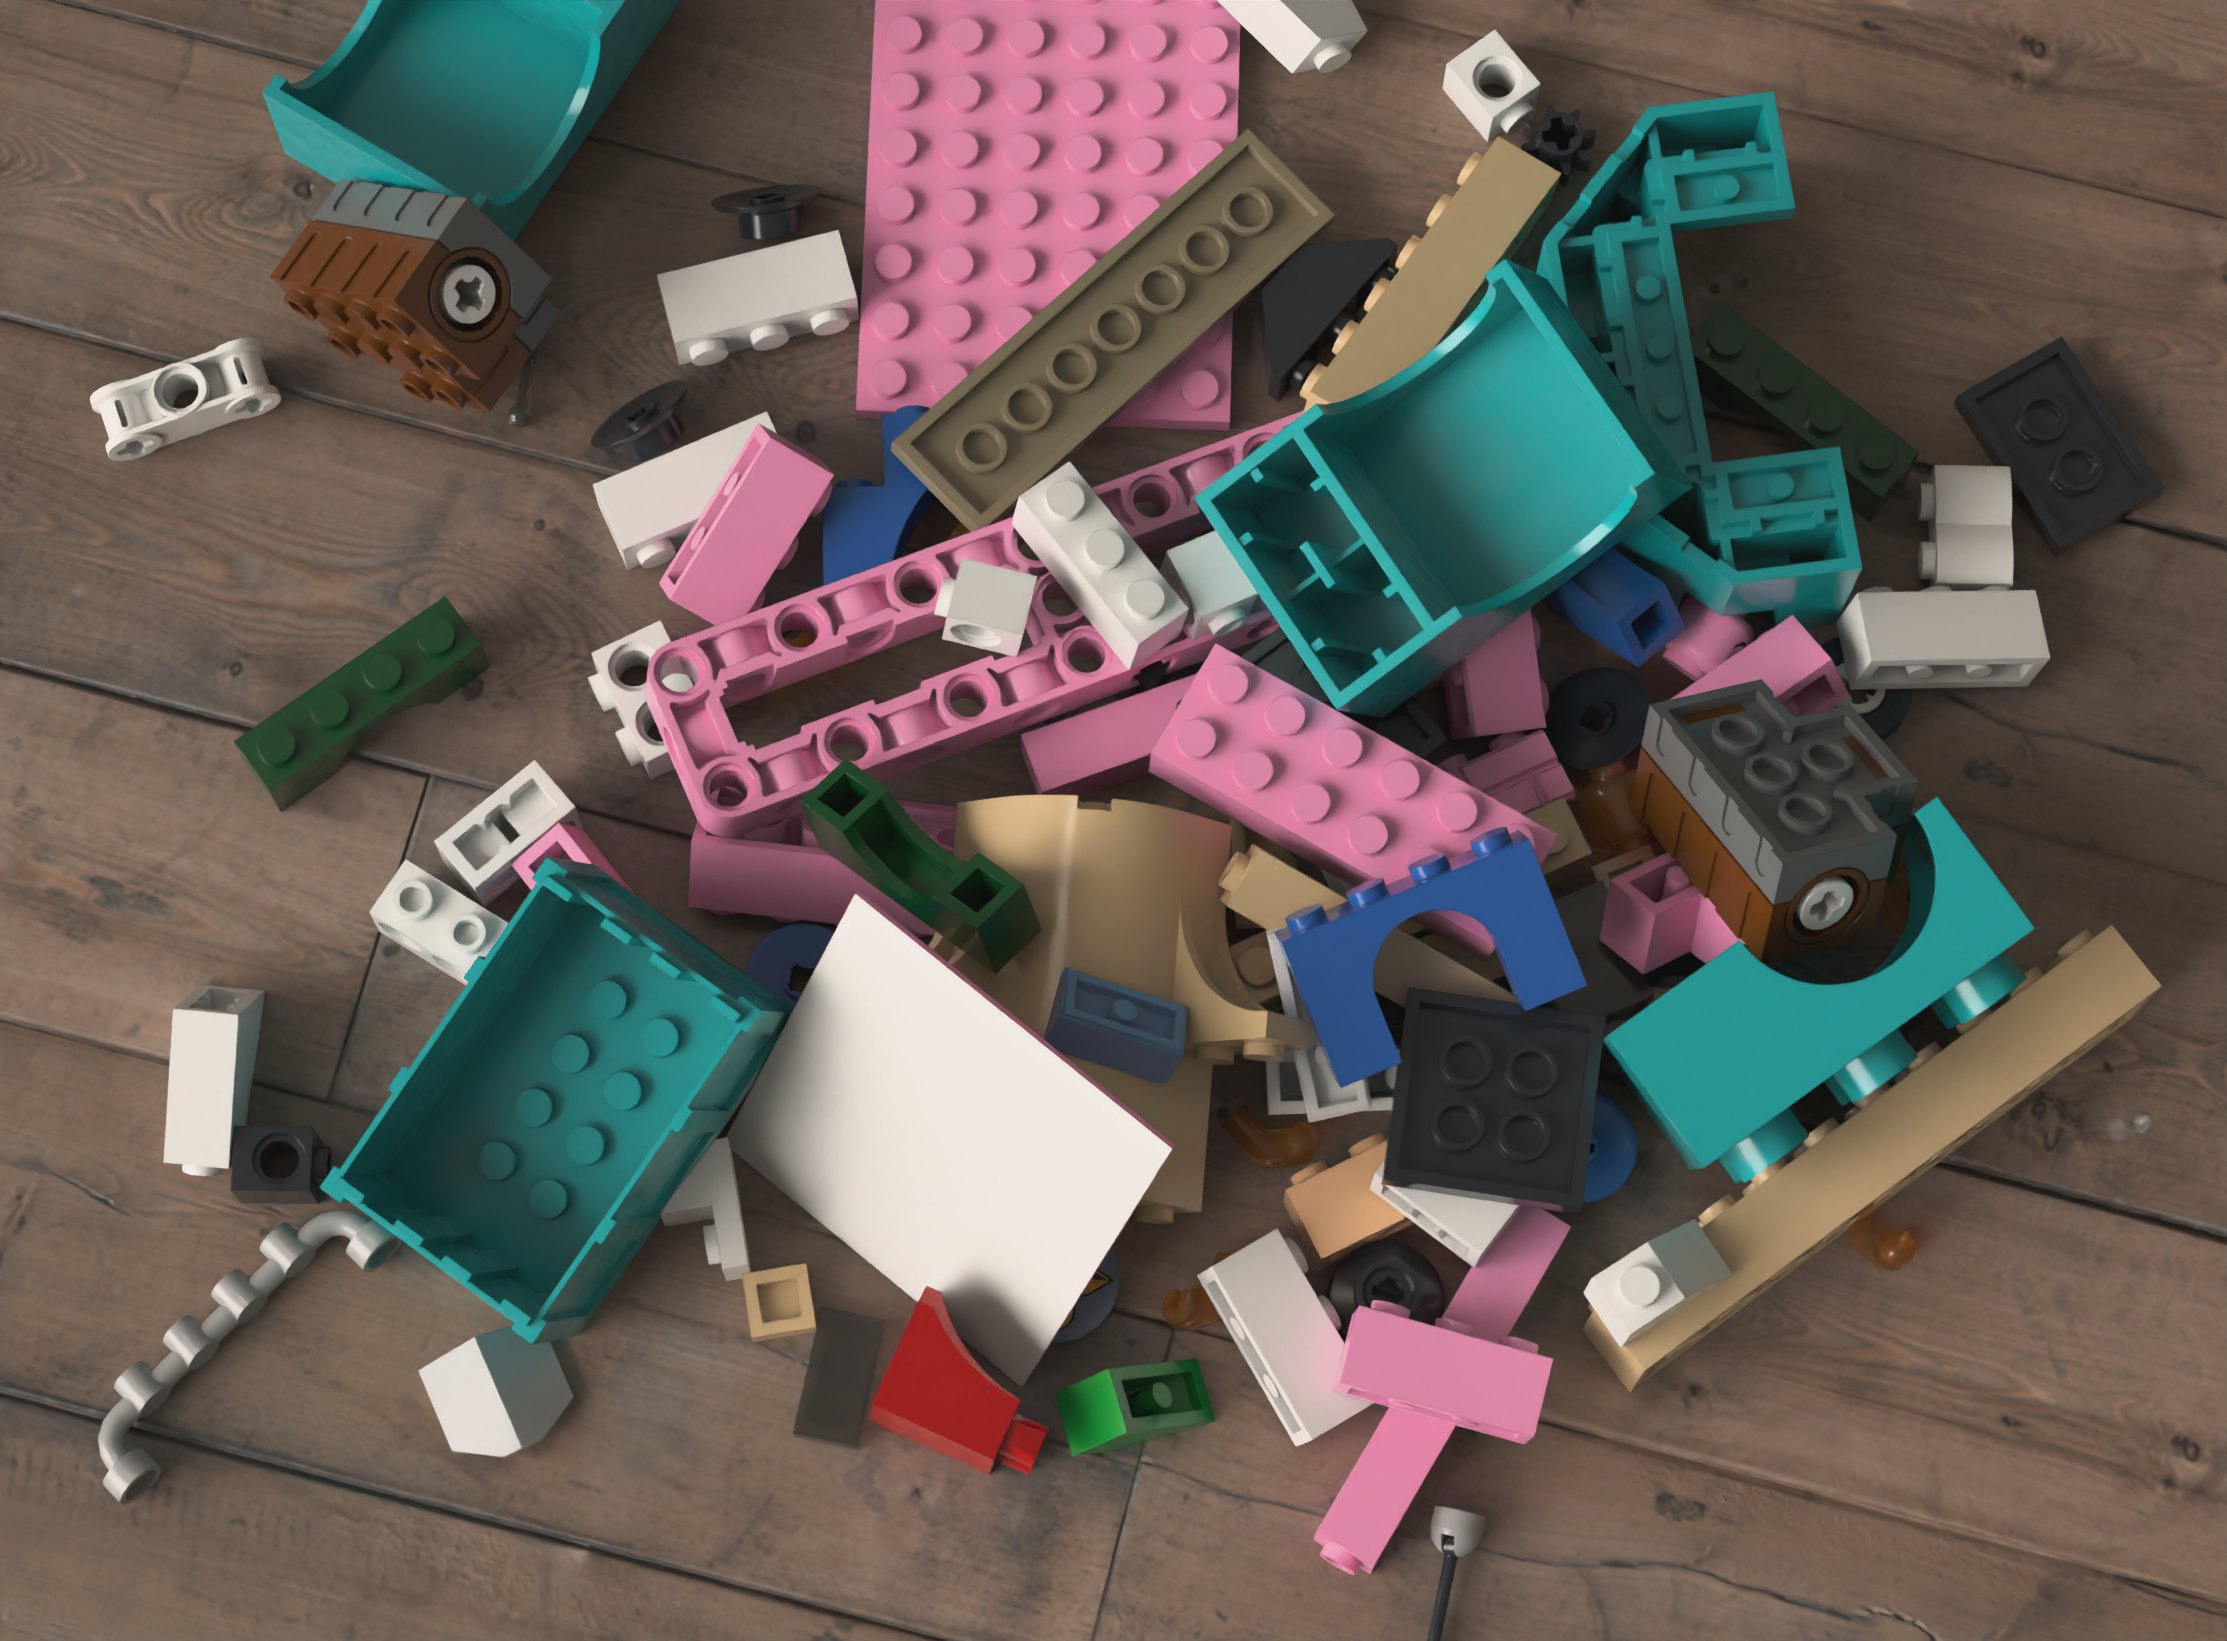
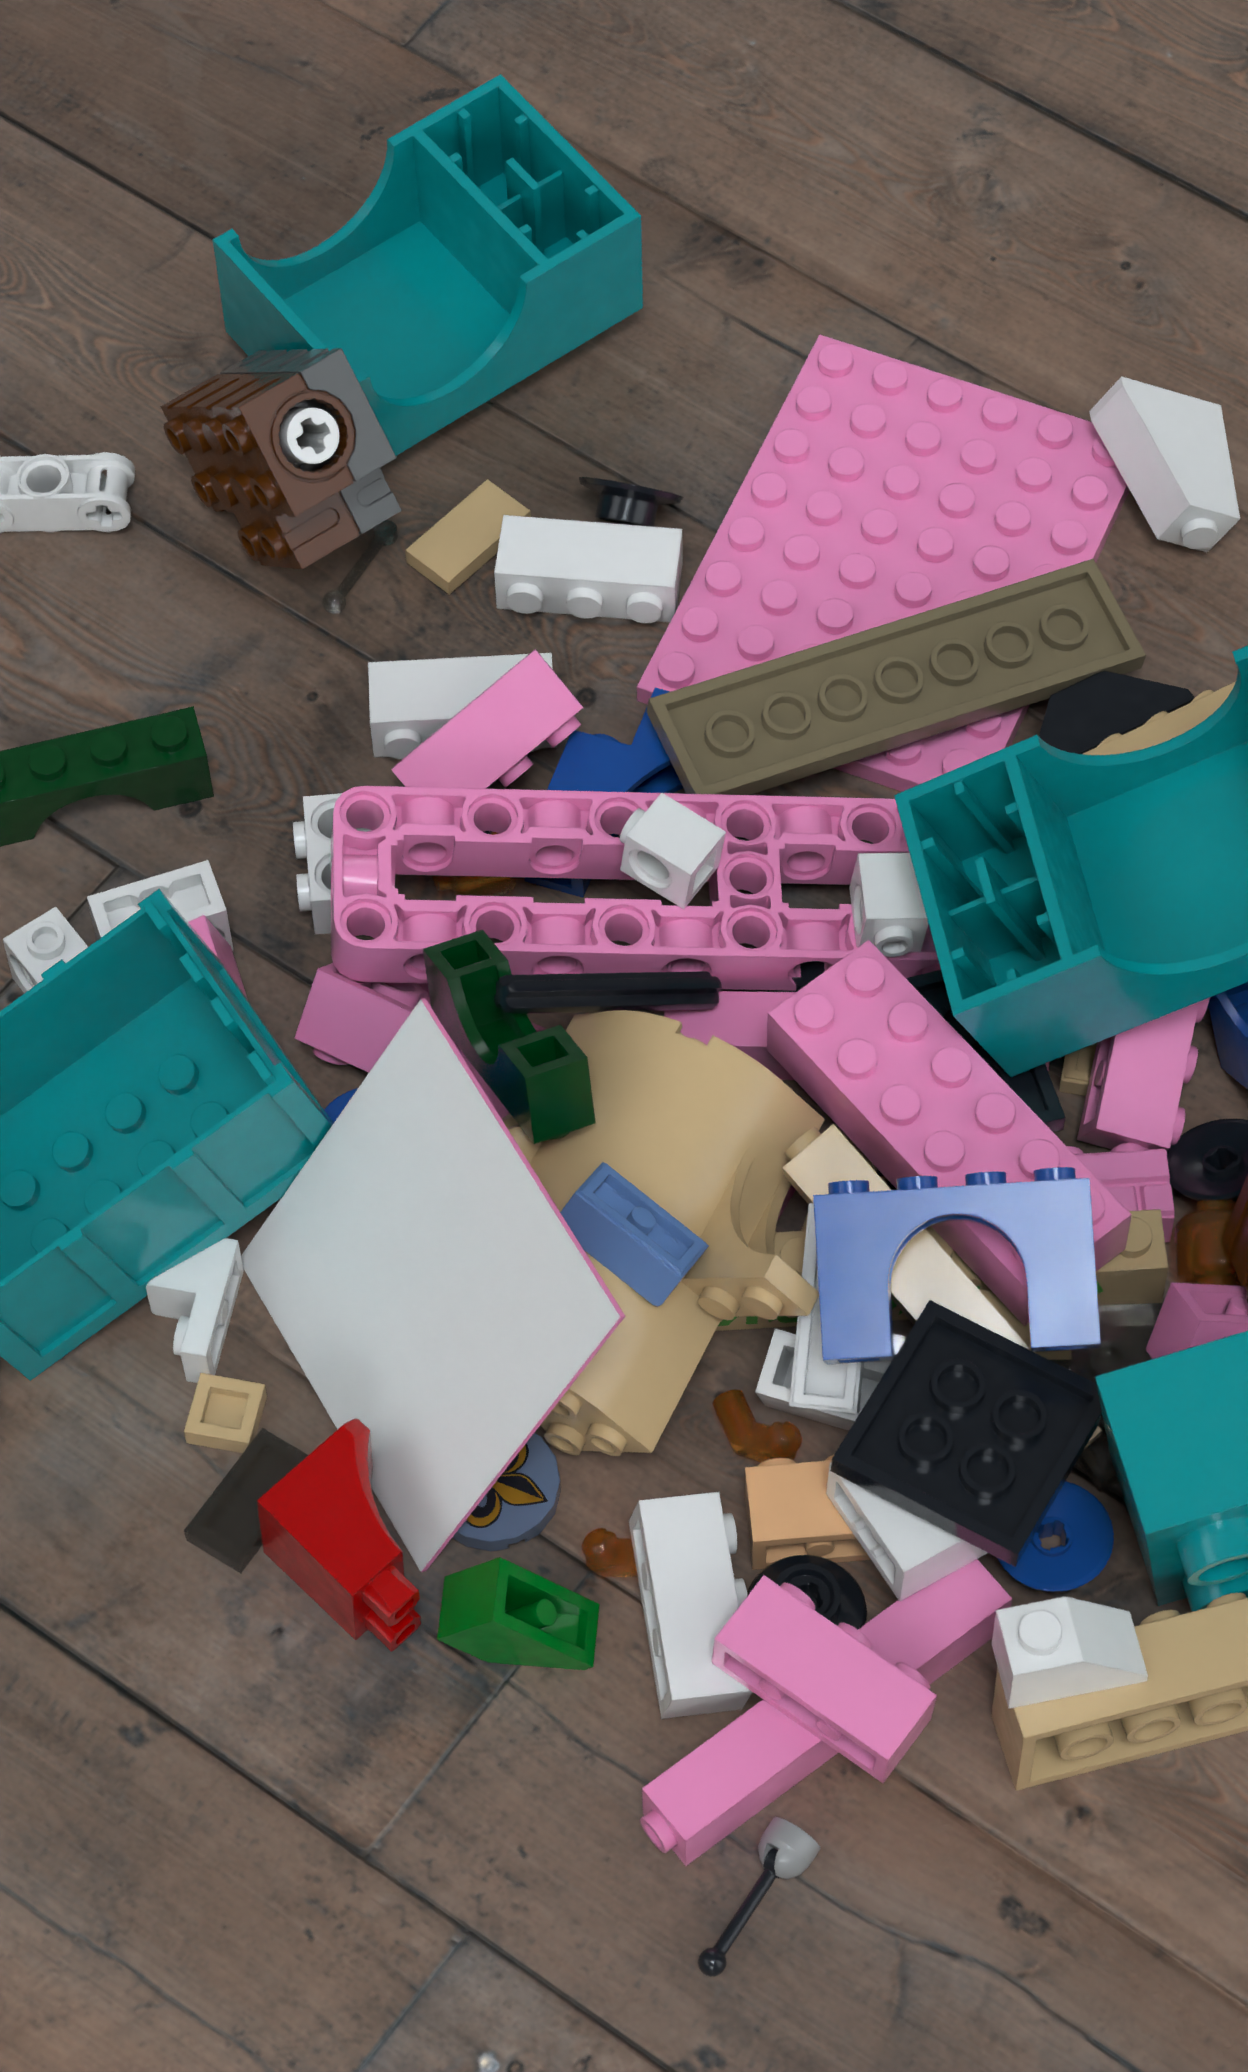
camera: 25 degrees right, 15 degrees down
(621, 298) = (464, 537): none -> tan tile
(645, 423) = (441, 639): black piece -> none
(984, 776) = (606, 992): none -> black axle
(1099, 565) = (792, 852): white brick -> none

